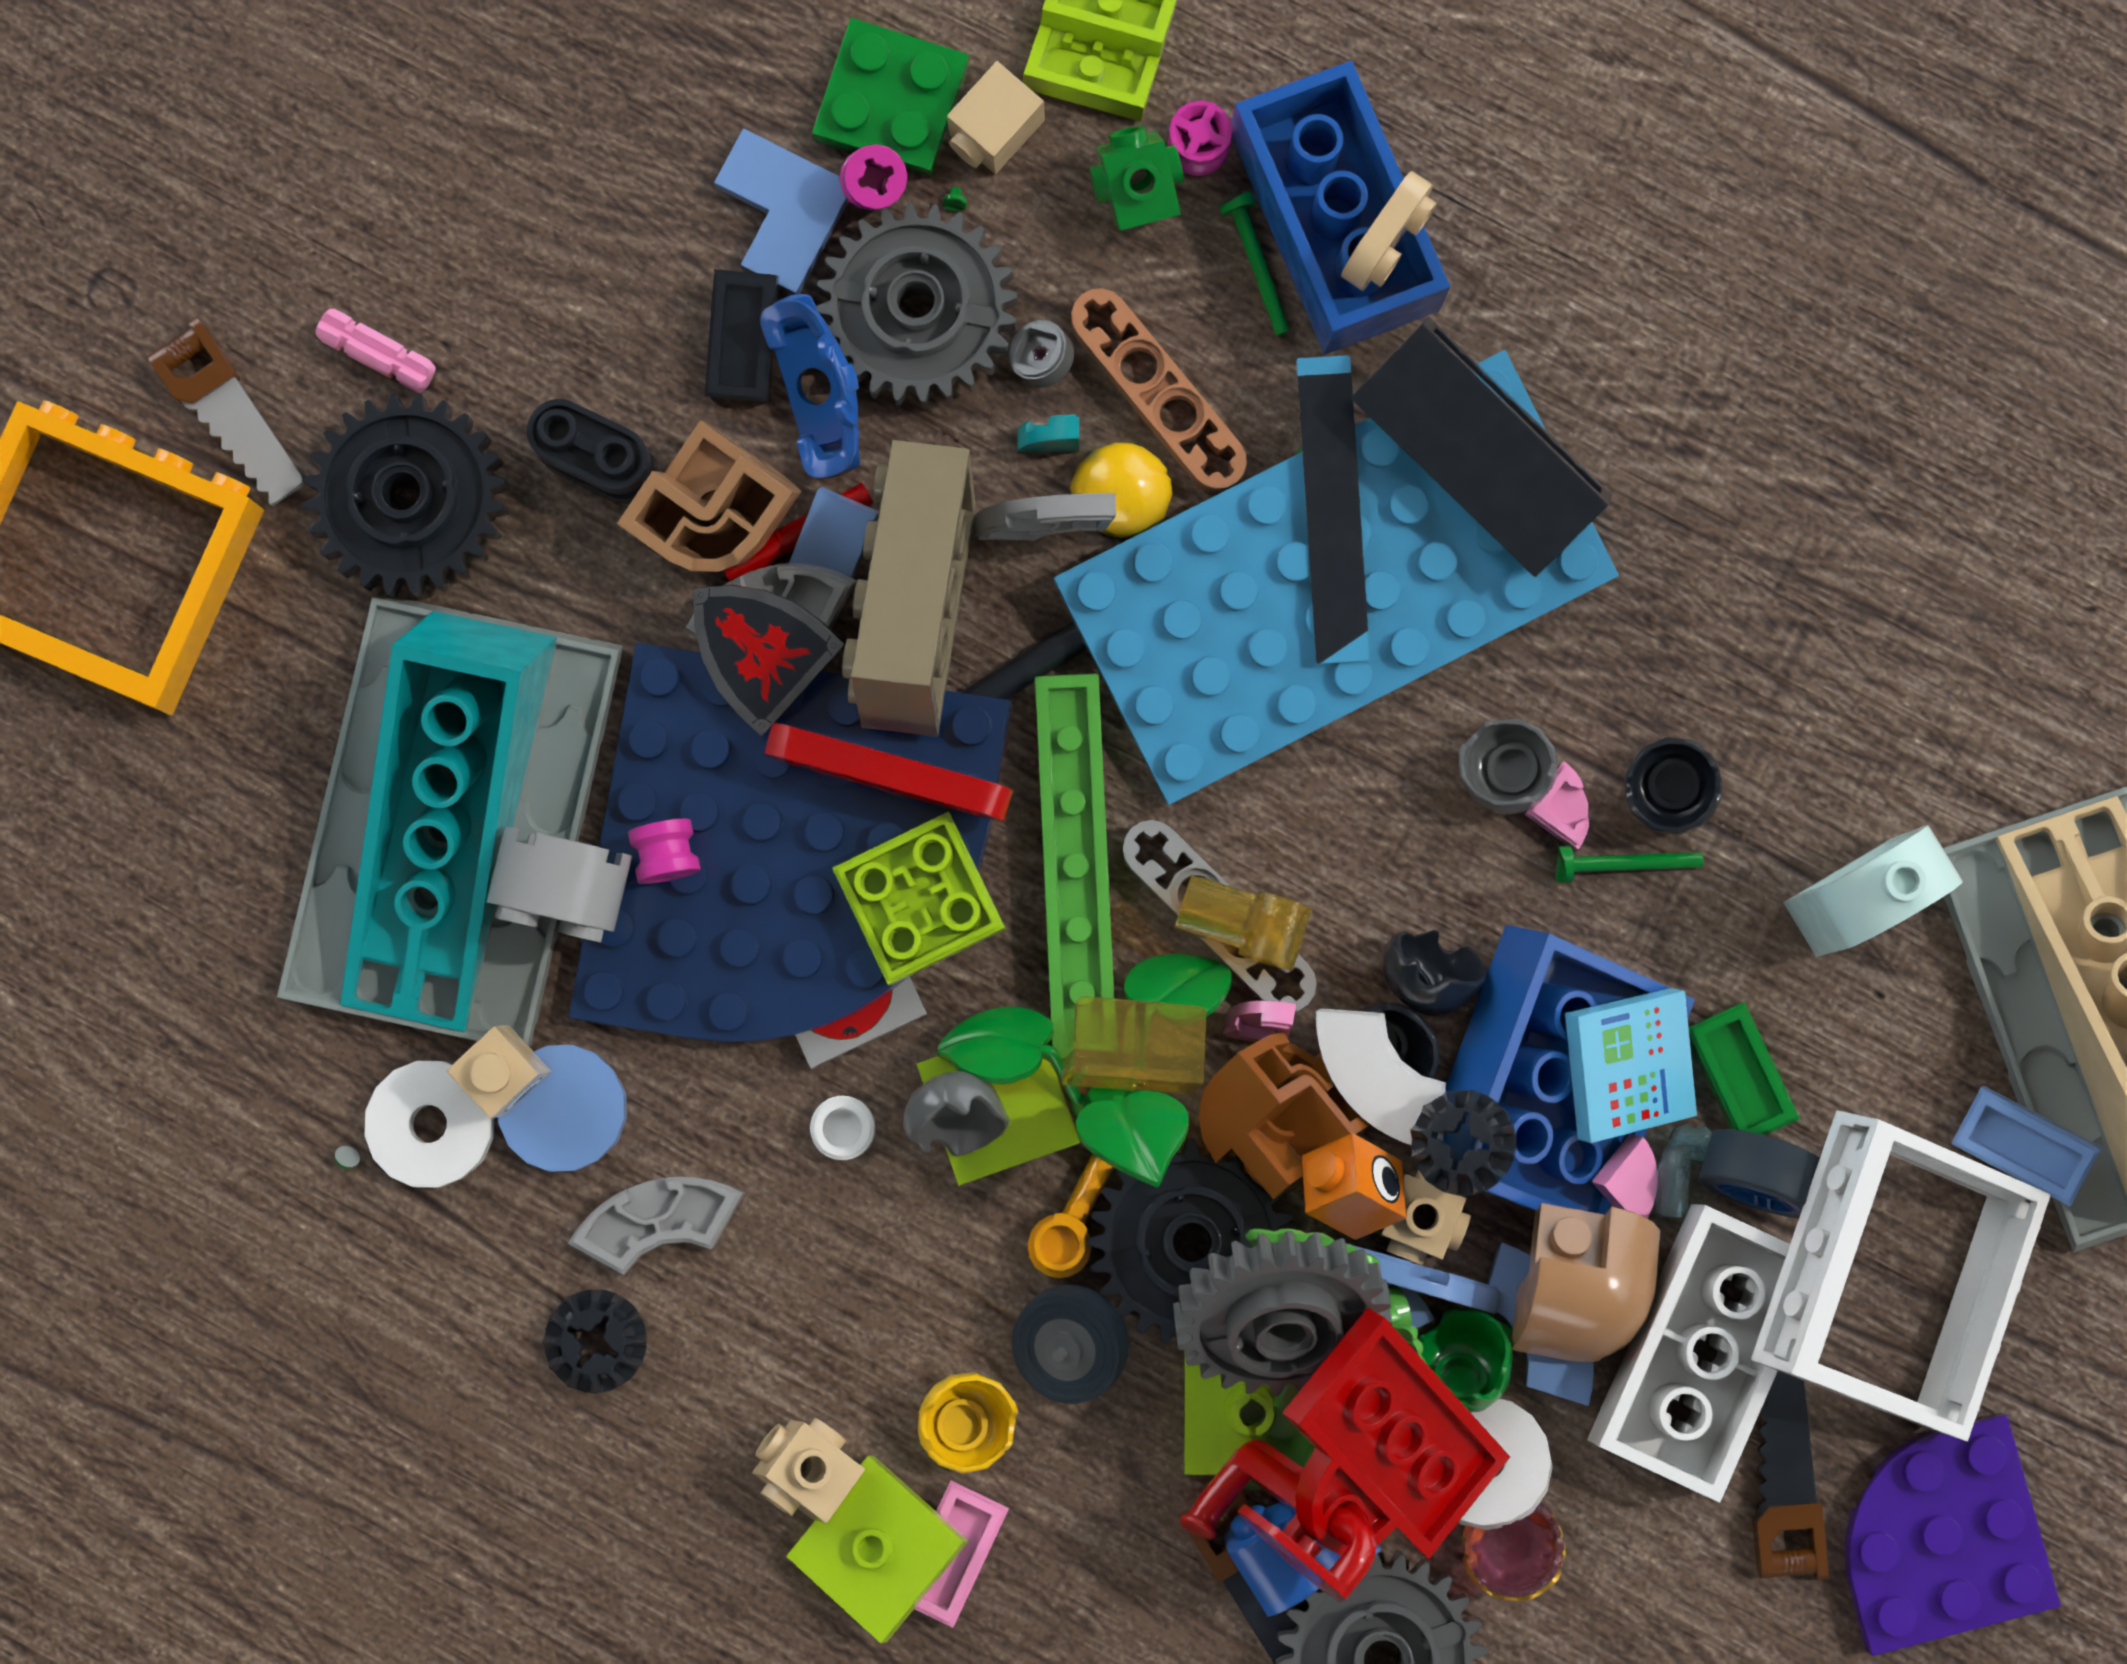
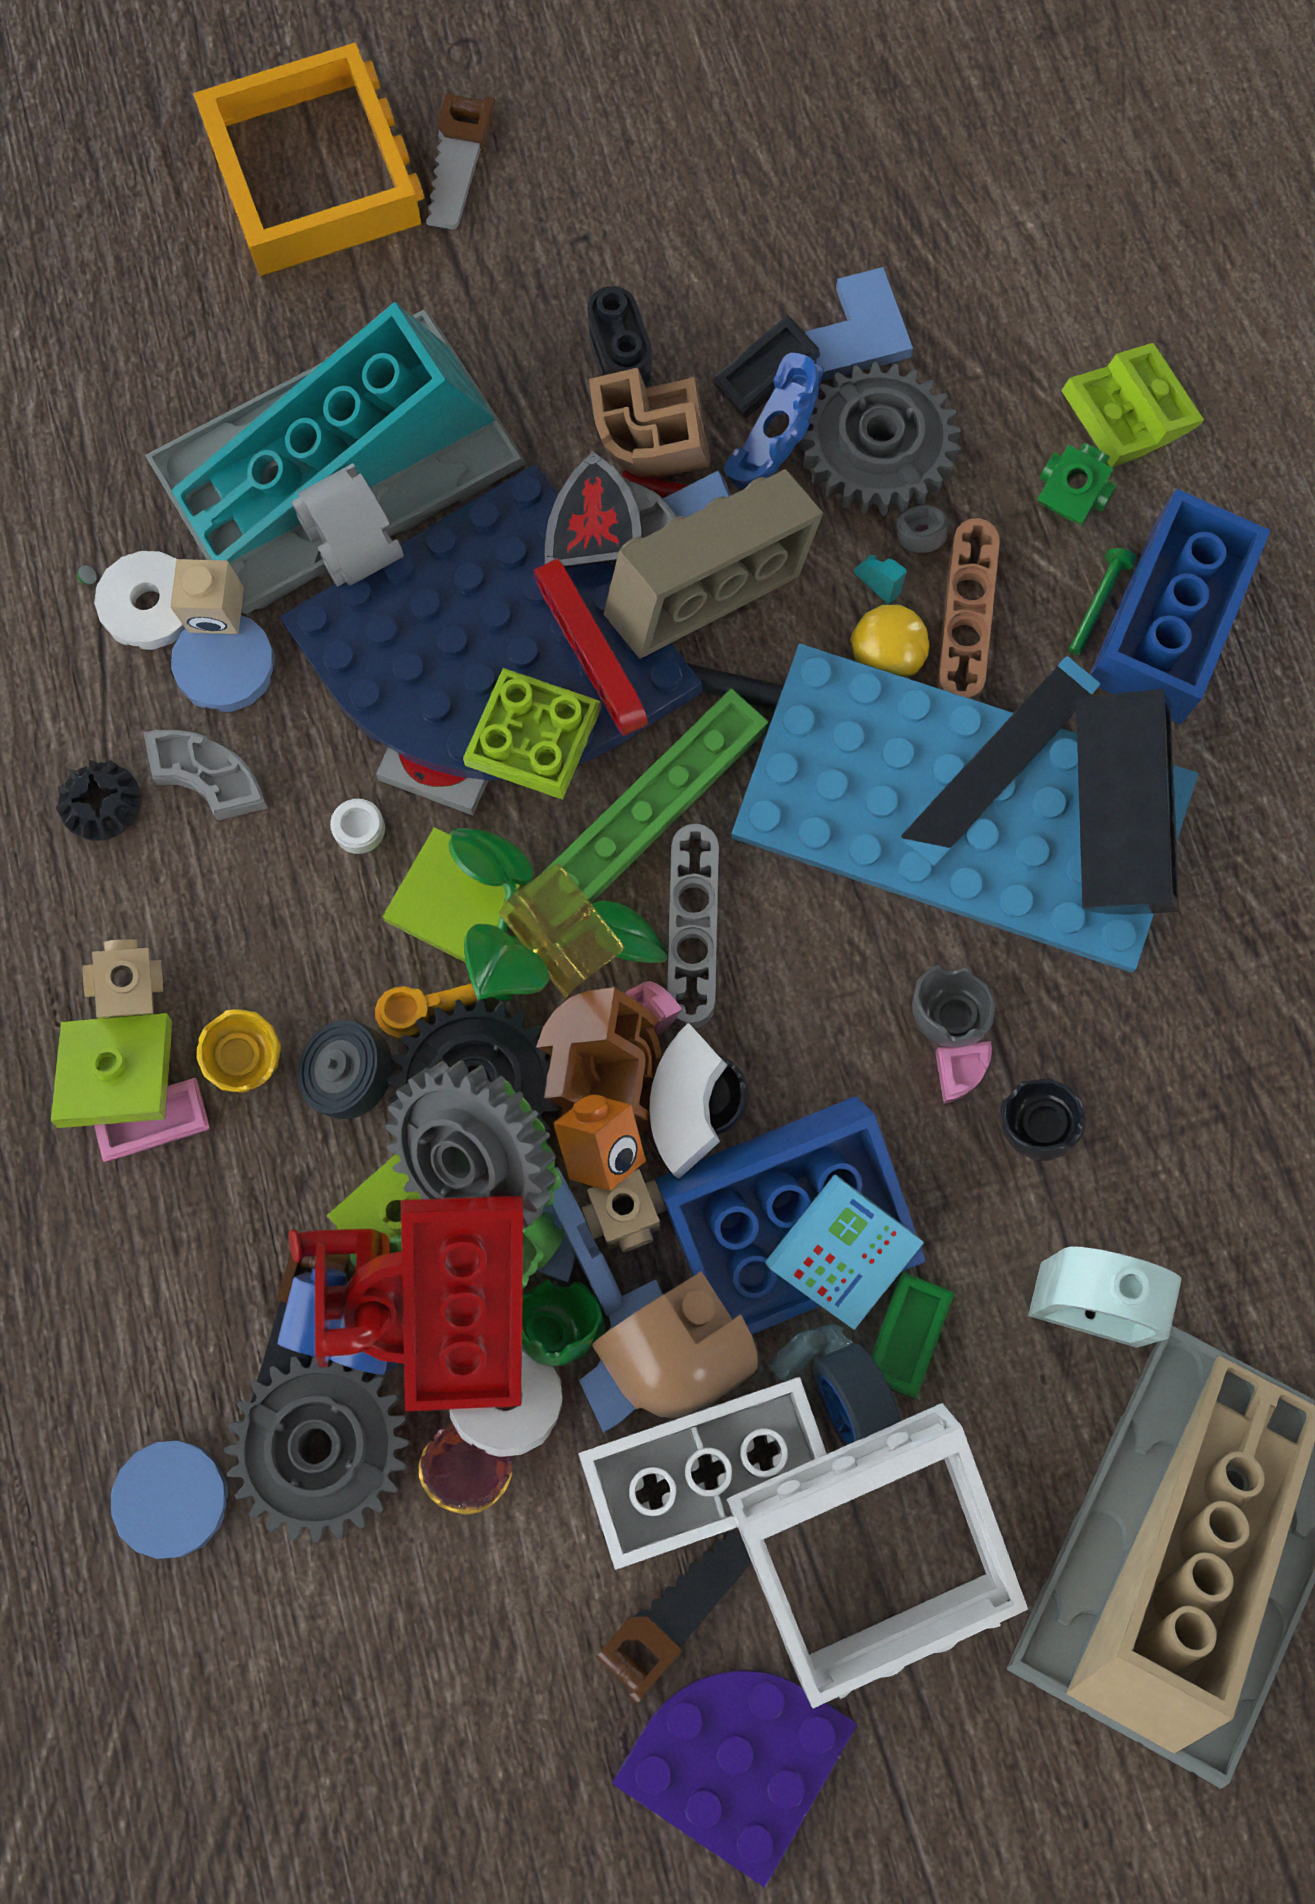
camera: 45 degrees right, 10 degrees down
(375, 350) = (565, 198): bright pink axle -> none
(376, 460) = (462, 271): black gear -> none
(664, 851) = (423, 569): dark pink wheel -> none
(862, 181) = (924, 356): dark pink wheel -> none
(891, 95) = (982, 328): green plate -> none
(954, 200) = (962, 411): green piece -> none
(955, 1112) = (421, 864): dark grey hair -> none
(994, 119) = (1028, 385): tan brick -> none
(1045, 516) = (831, 603): light grey tile -> none
(1202, 124) = (1141, 490): dark pink wheel -> none
(1258, 925) = (708, 945): clear yellow piece -> none
(1375, 254) = (1195, 626): tan plate -> none
(1430, 976) = (778, 1076): black hair -> none
(1478, 1169) = (682, 1201): black gear -> none
(1568, 863) = (966, 1137): green piece -> none
(1630, 1177) = (774, 1322): bright pink tile -> none
(2026, 1145) = (1044, 1565): medium blue tile -> none

